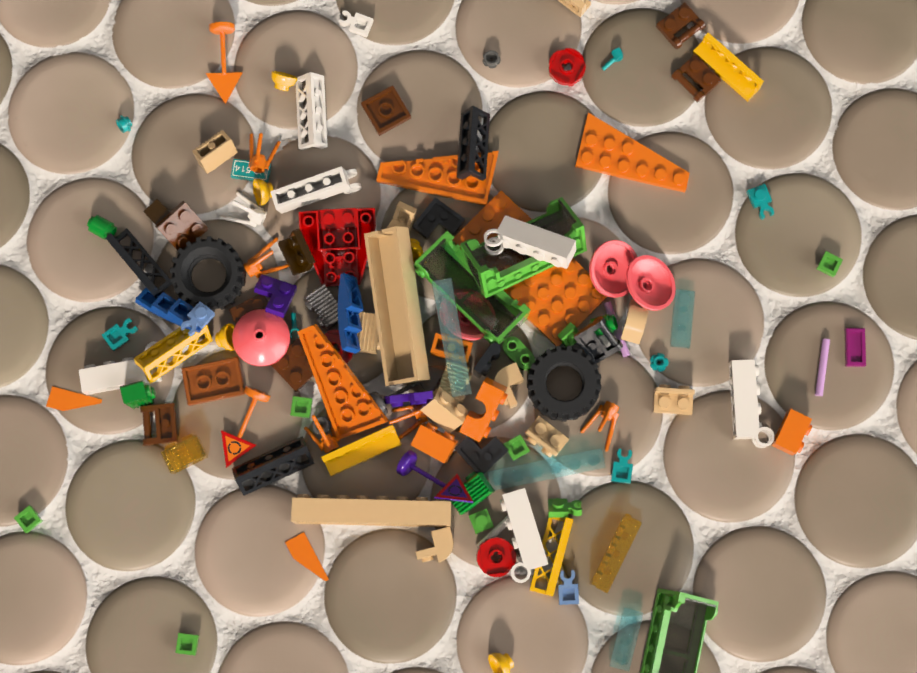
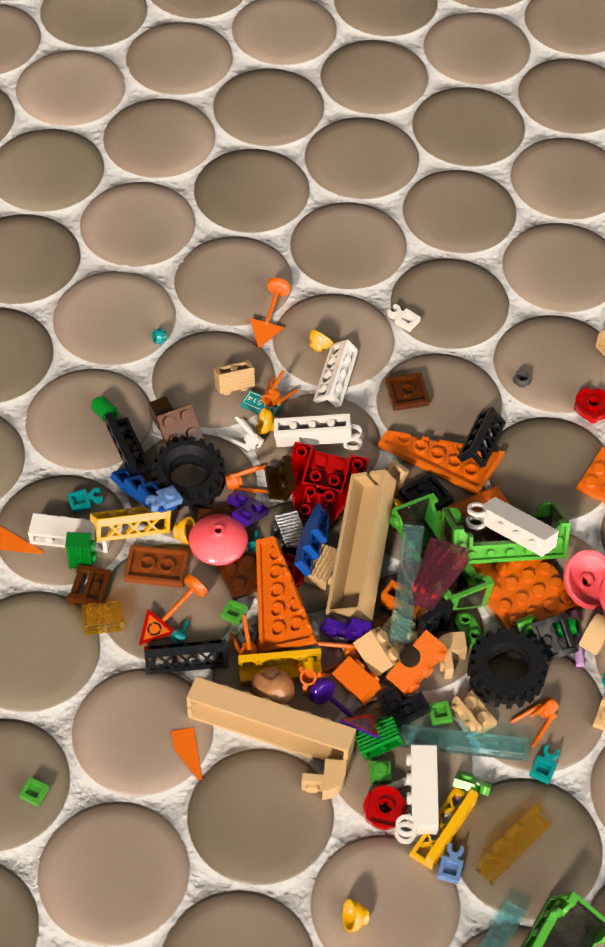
camera: 15 degrees right, 25 degrees down
(258, 449) = (177, 635): none -> teal hand
(362, 477) = (273, 684): none -> medium nougat piece
(391, 459) = (309, 677): none -> orange plant
(477, 317) = (438, 572): none -> clear pink slope

